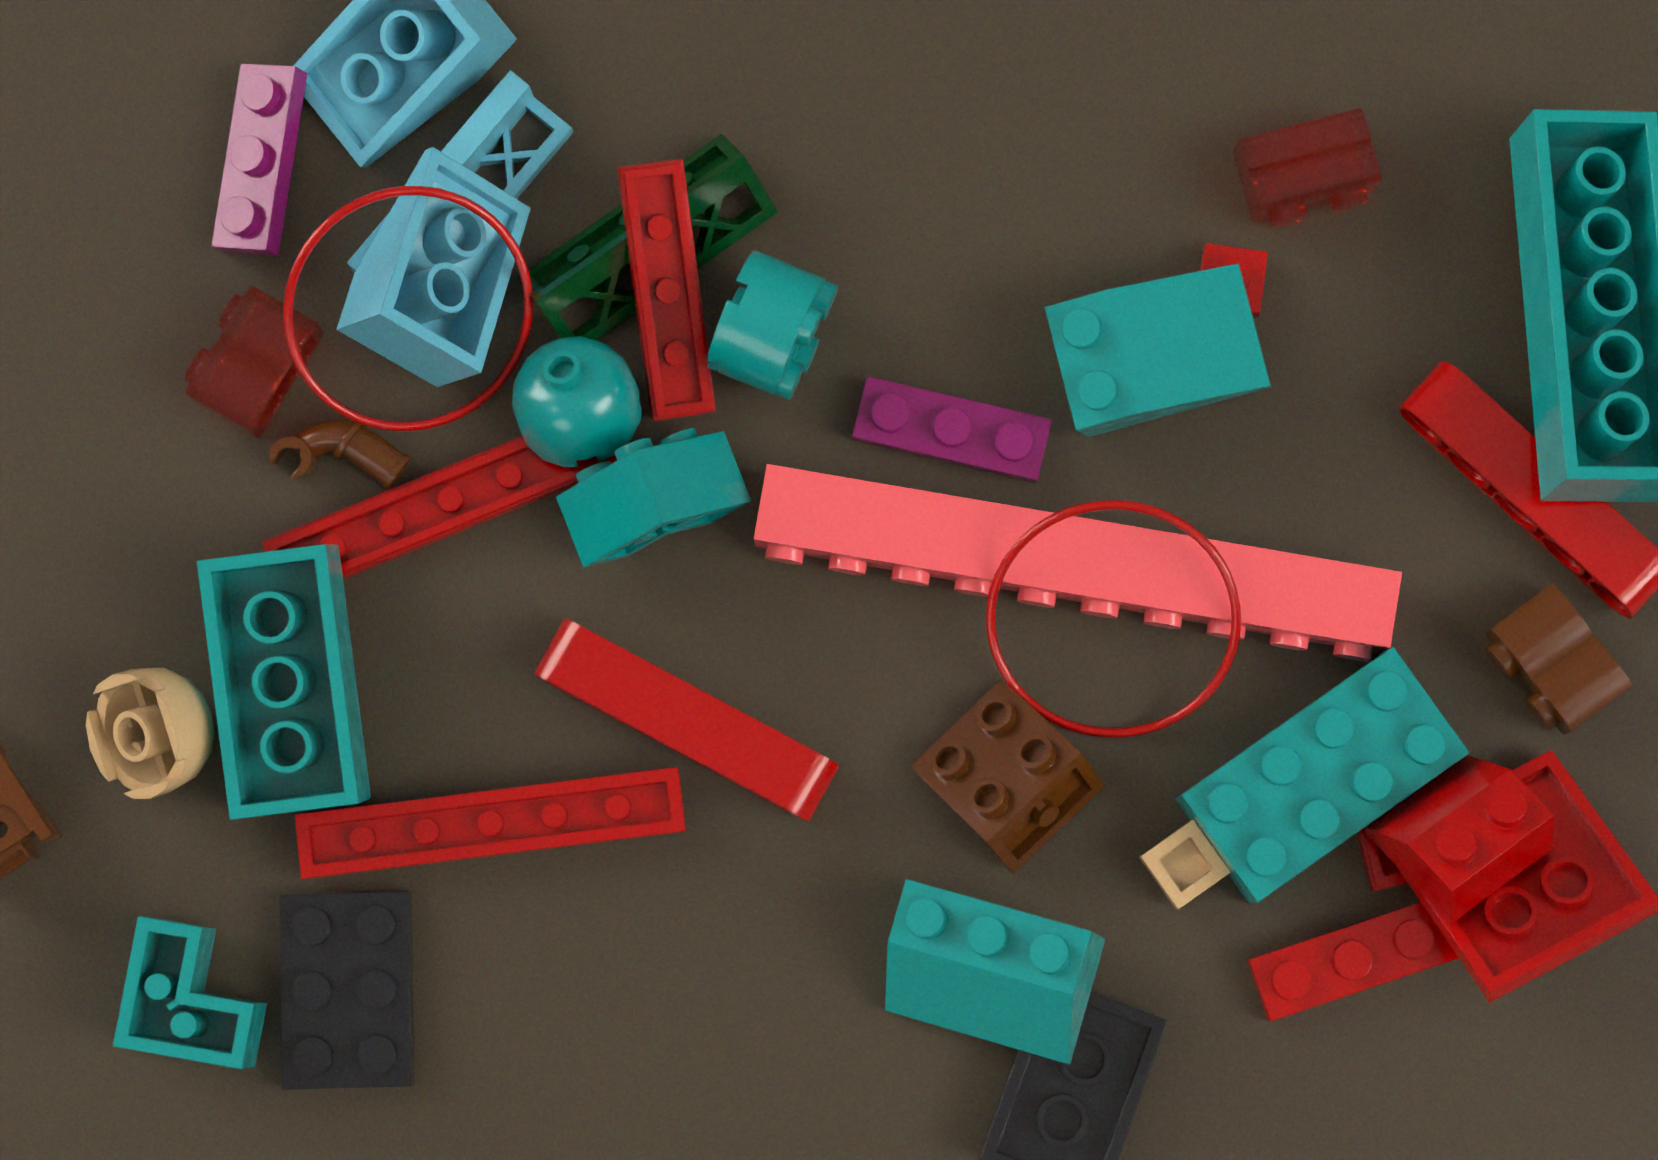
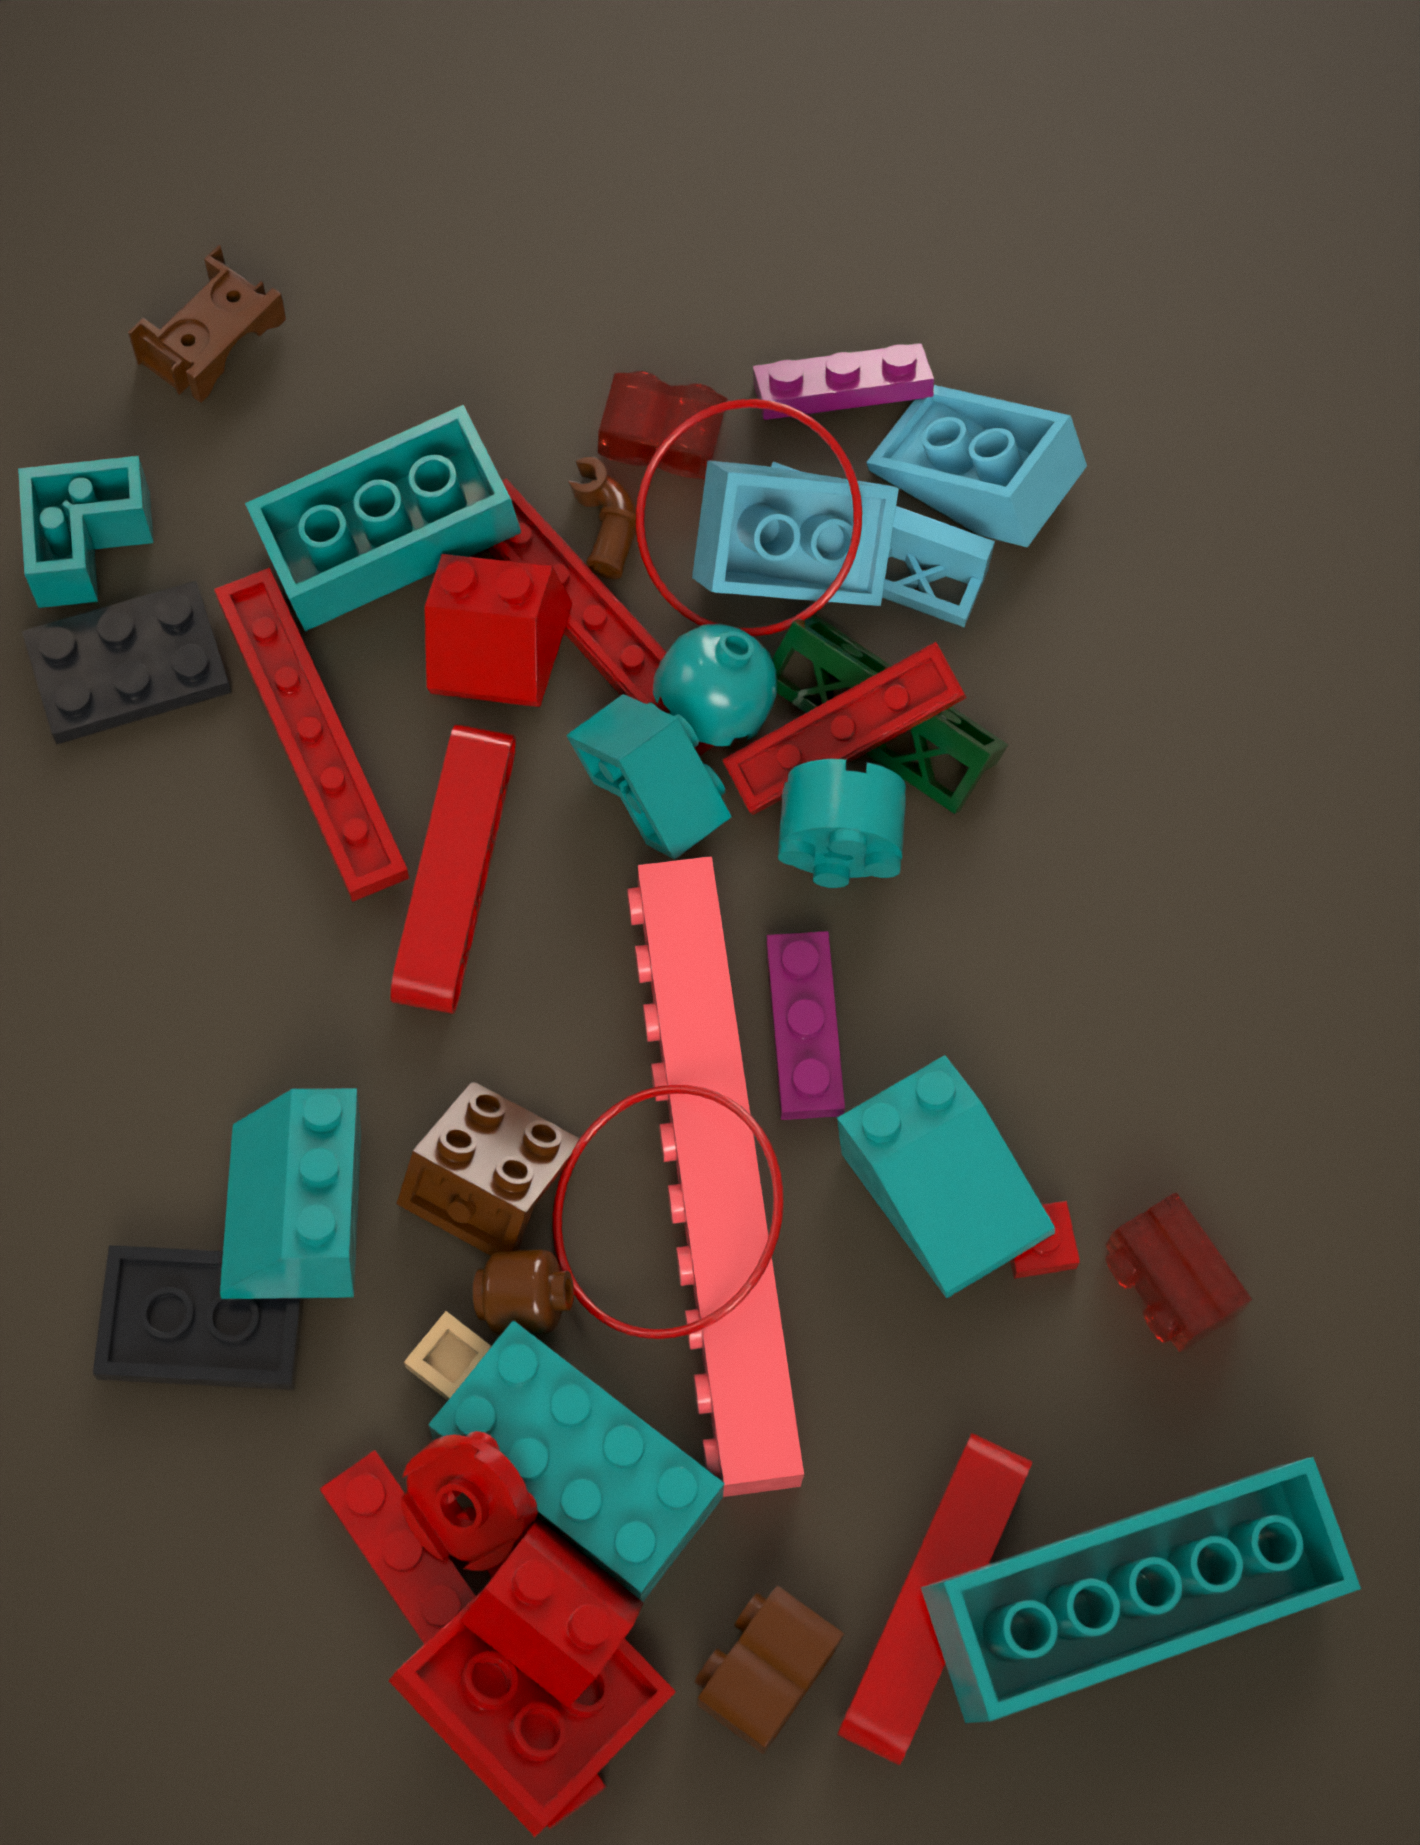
camera: 65 degrees right, 15 degrees down
(150, 731) = (308, 428): tan cylinder -> none
(444, 606) = (493, 629): none -> red slope
(1143, 779) = (523, 1289): none -> reddish brown head
(1346, 860) = (491, 1482): none -> red plate

